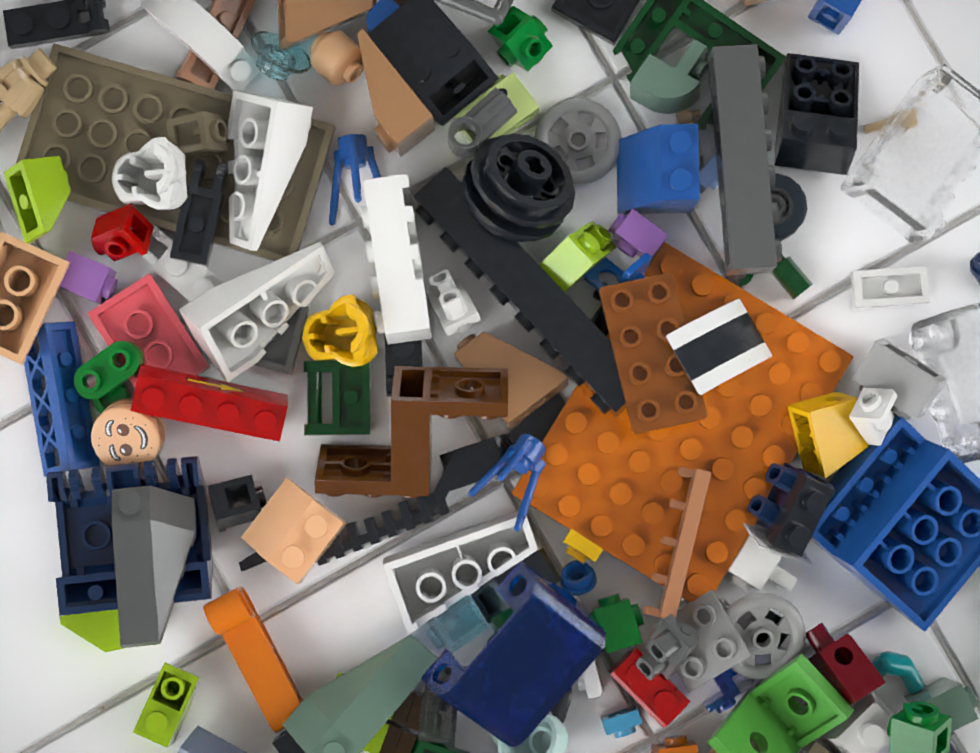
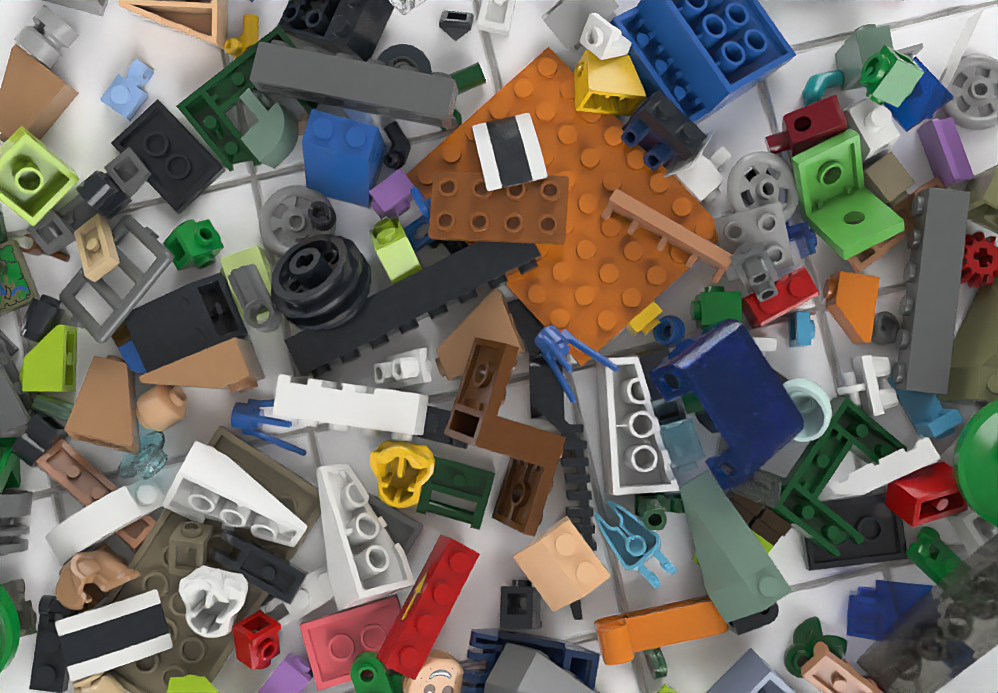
camera: 65 degrees left, 0 degrees up
(85, 83) = (113, 635): none -> sticker
(137, 40) = (90, 577): none -> medium nougat head
(217, 664) = (656, 663): none -> clear green tile
(333, 607) = (638, 547): none -> medium azure hinge
(384, 614) = (652, 508): none -> dark green bar
(583, 171) = (323, 223): none -> black pin
(693, 227) = (399, 148): none -> black arm
(760, 25) = (248, 38): none -> yellow arm
(850, 247) = (456, 23): none -> black slope

